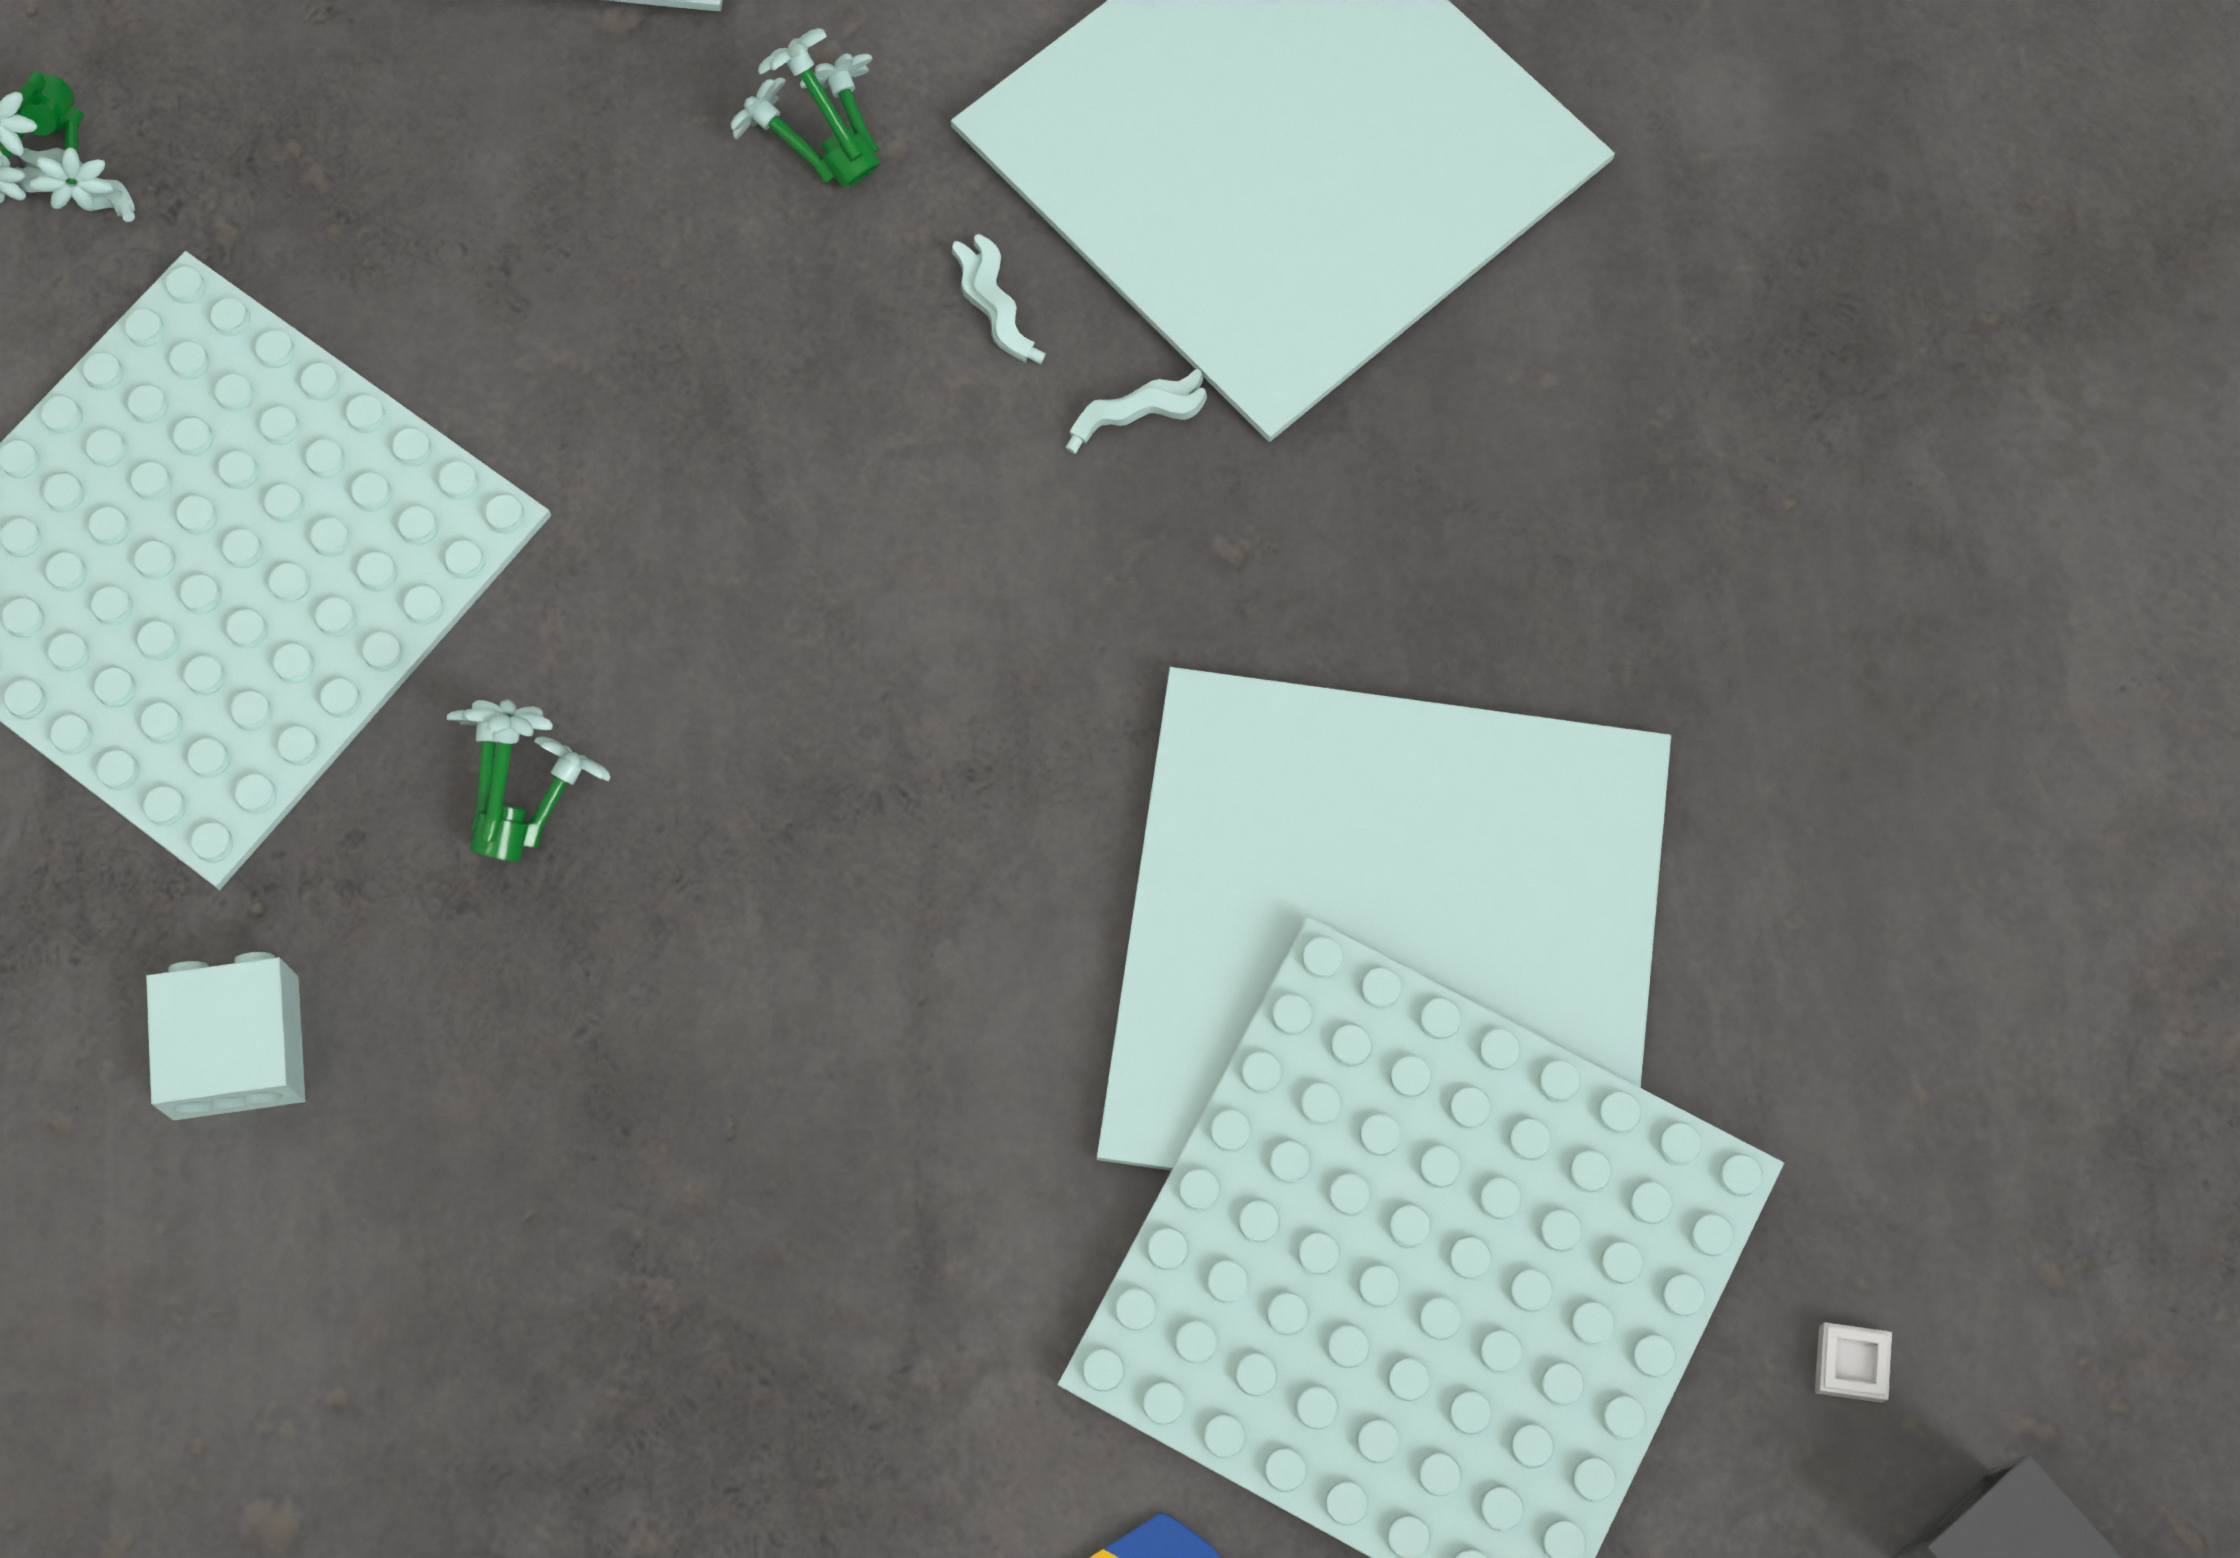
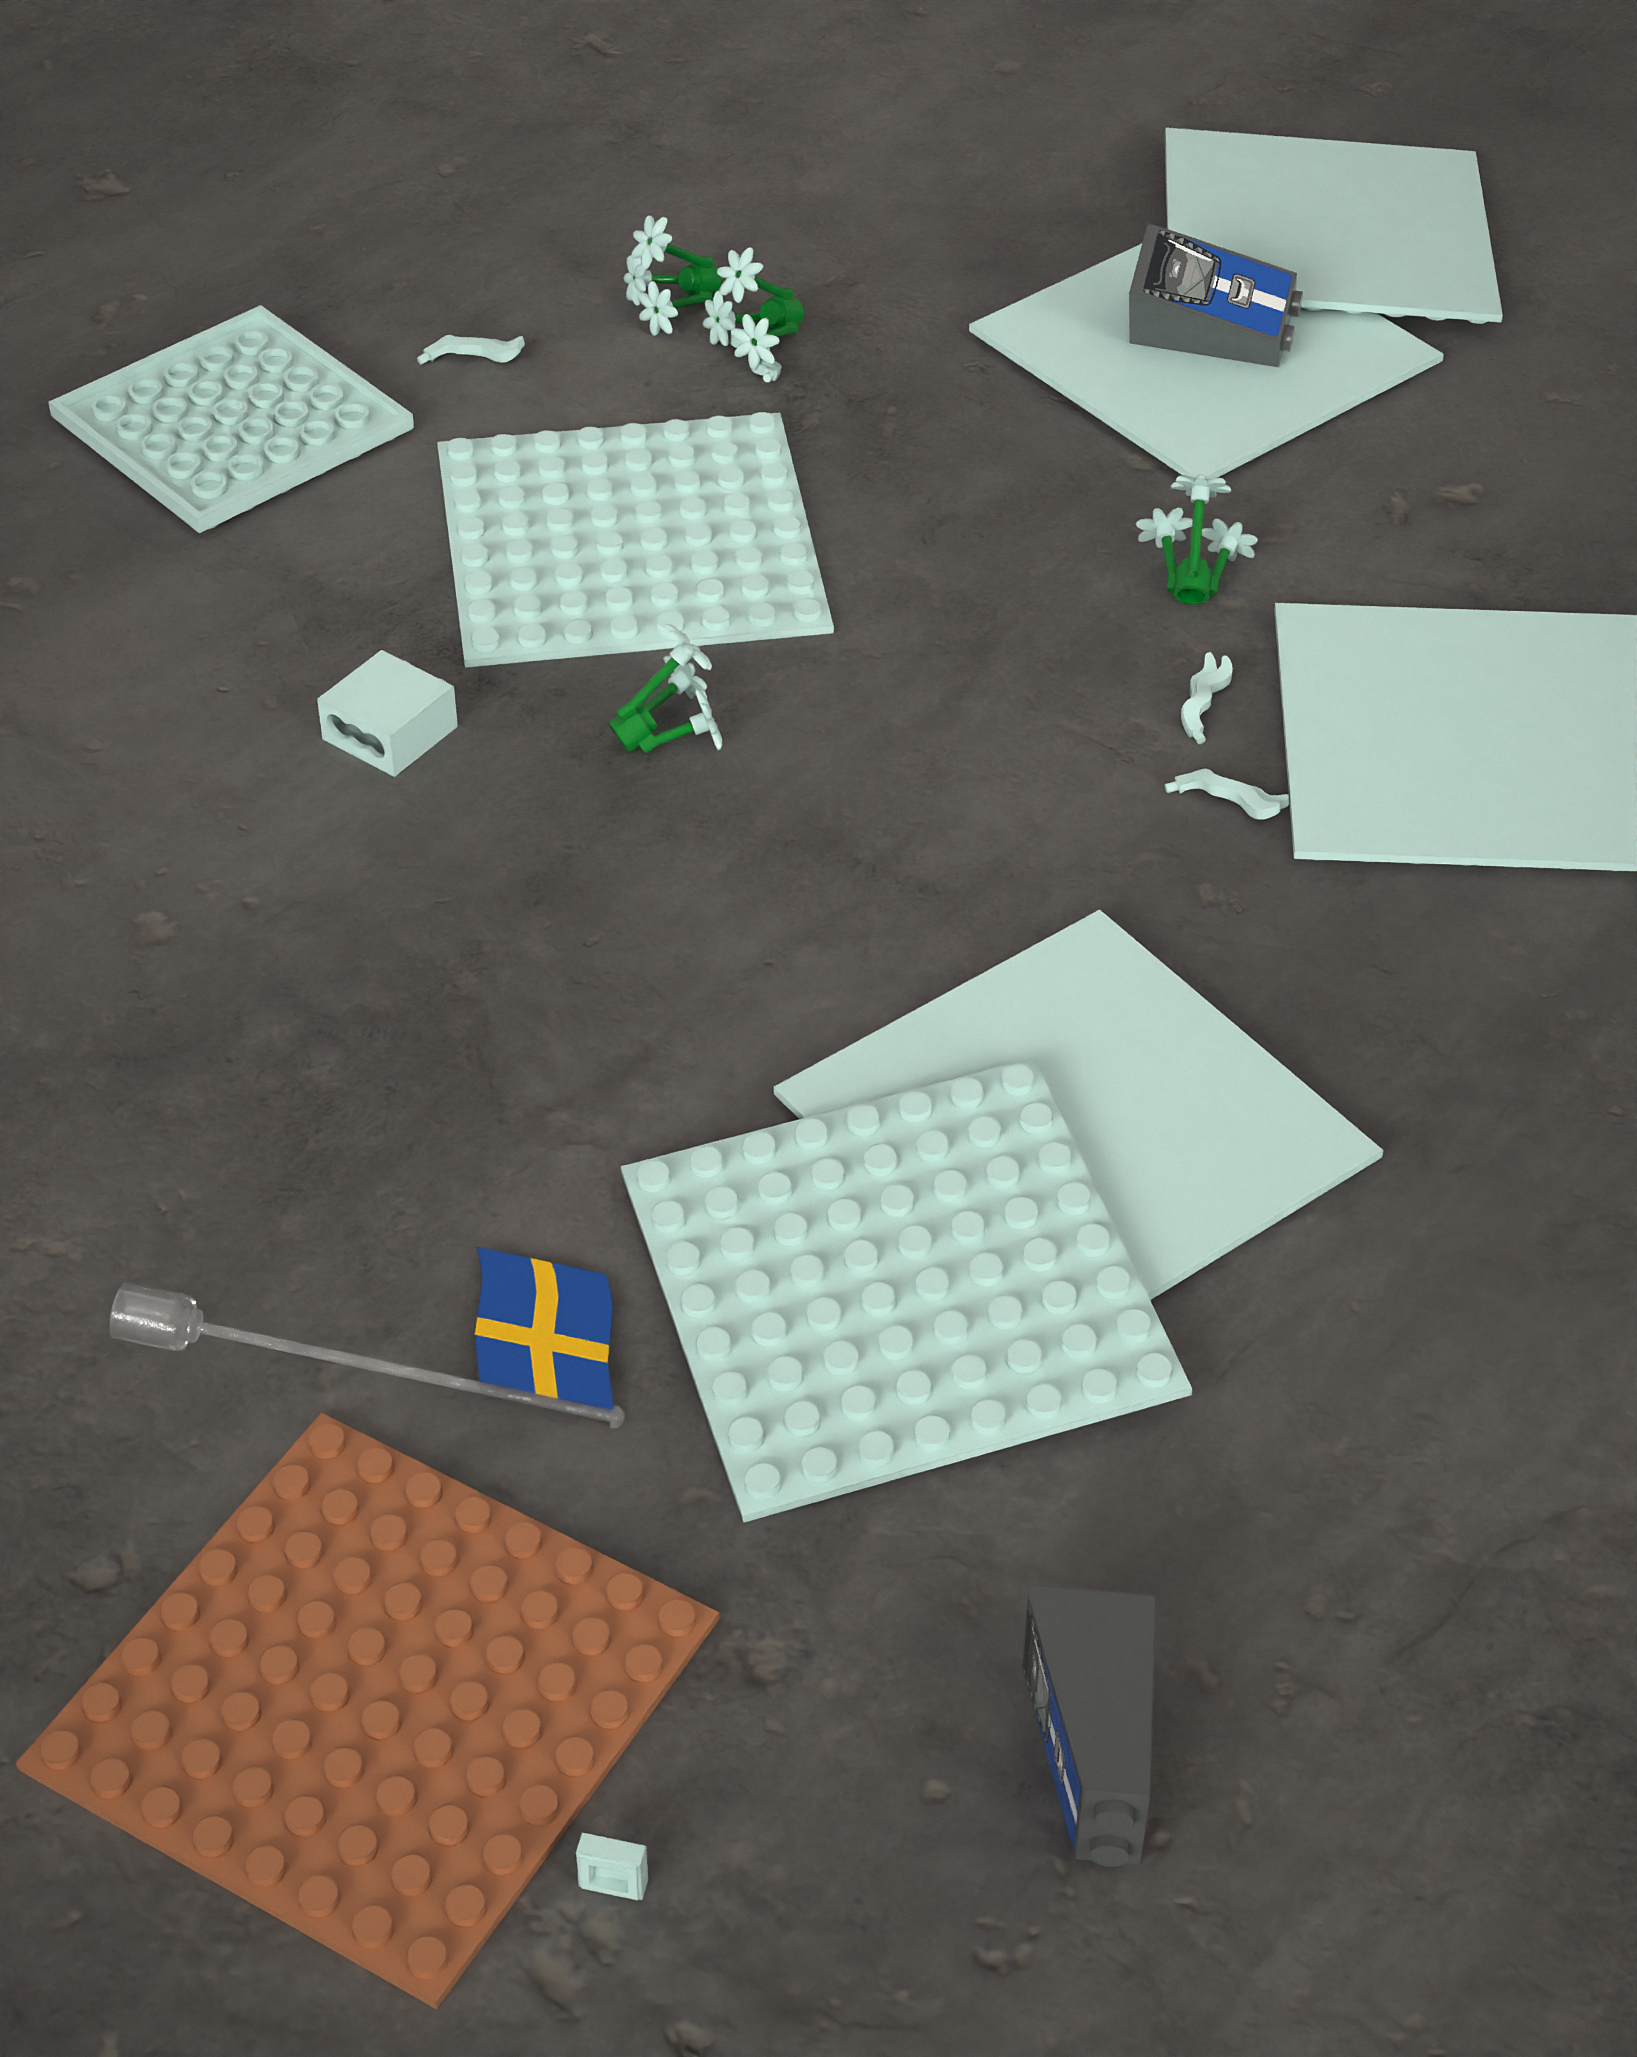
camera: 45 degrees right, 25 degrees down
(1853, 1362) = (1119, 1535): white tile -> none

